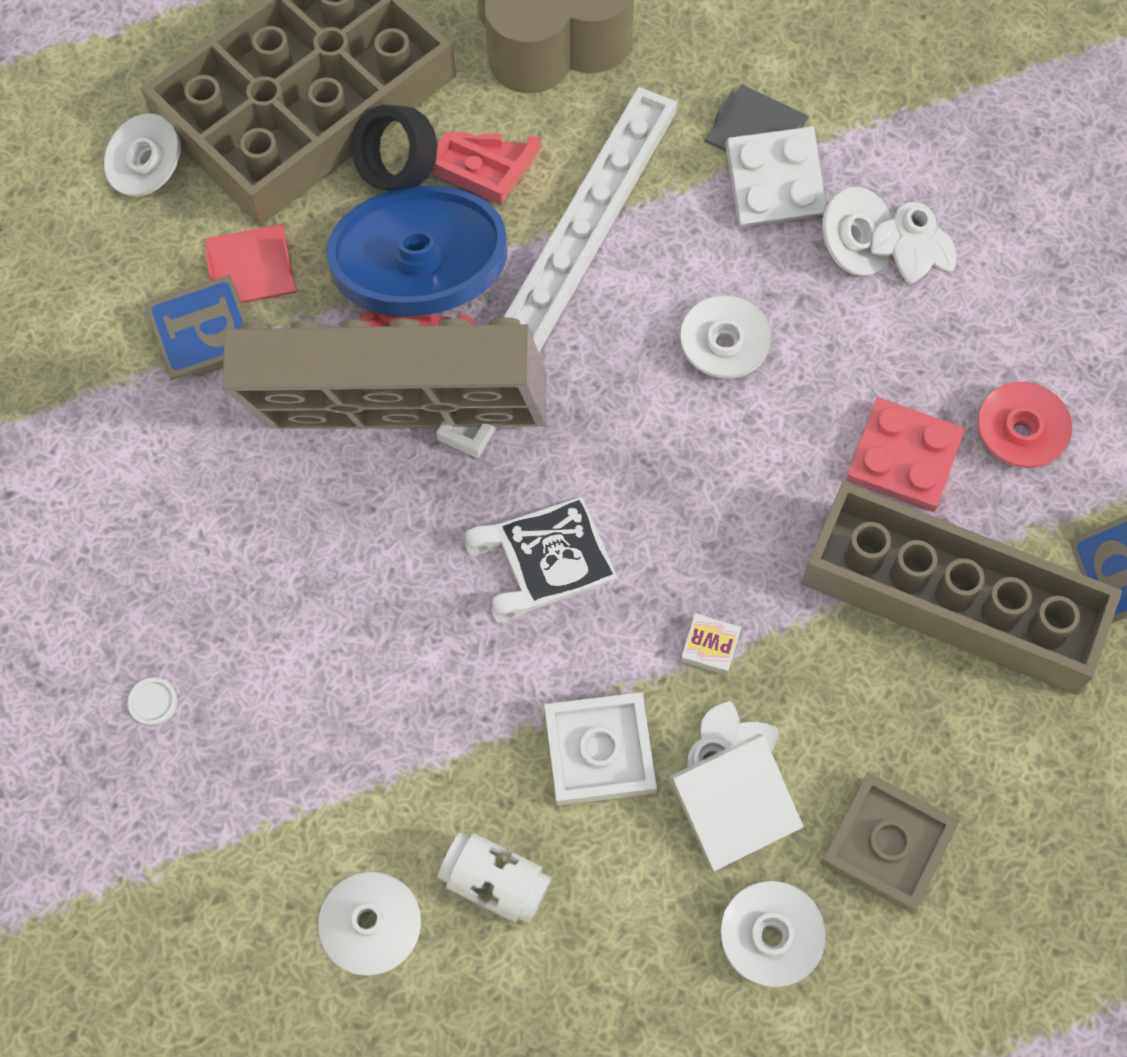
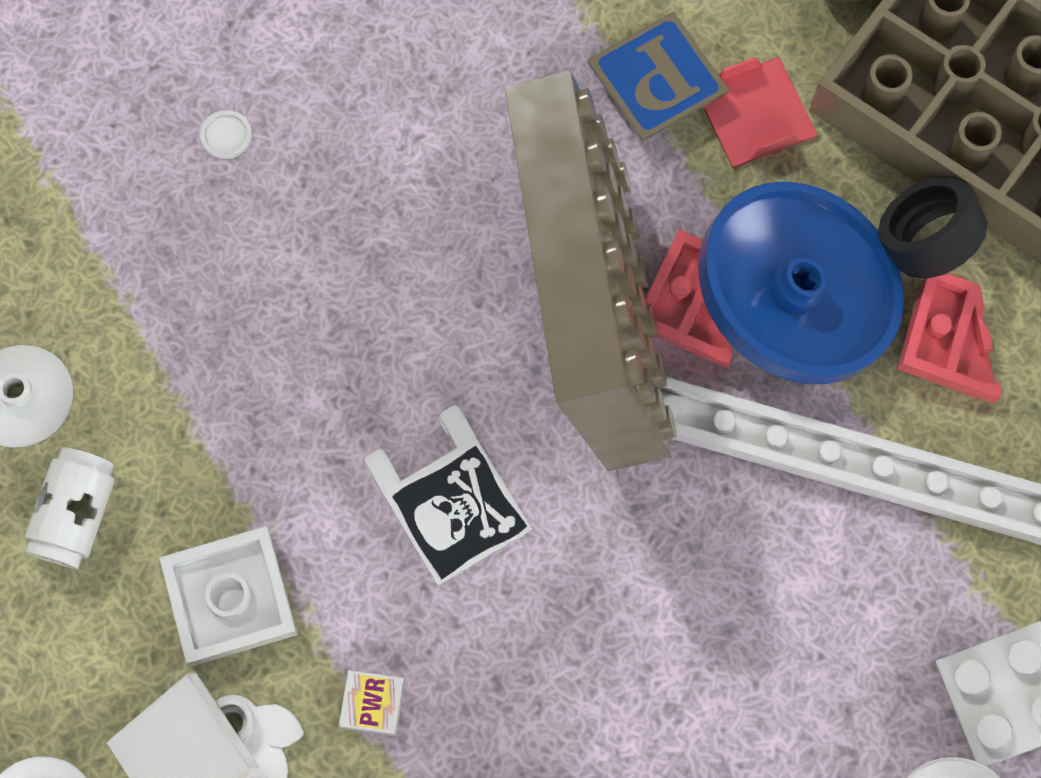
camera: 80 degrees right, 5 degrees up
(730, 319) = (773, 634): white dish -> none

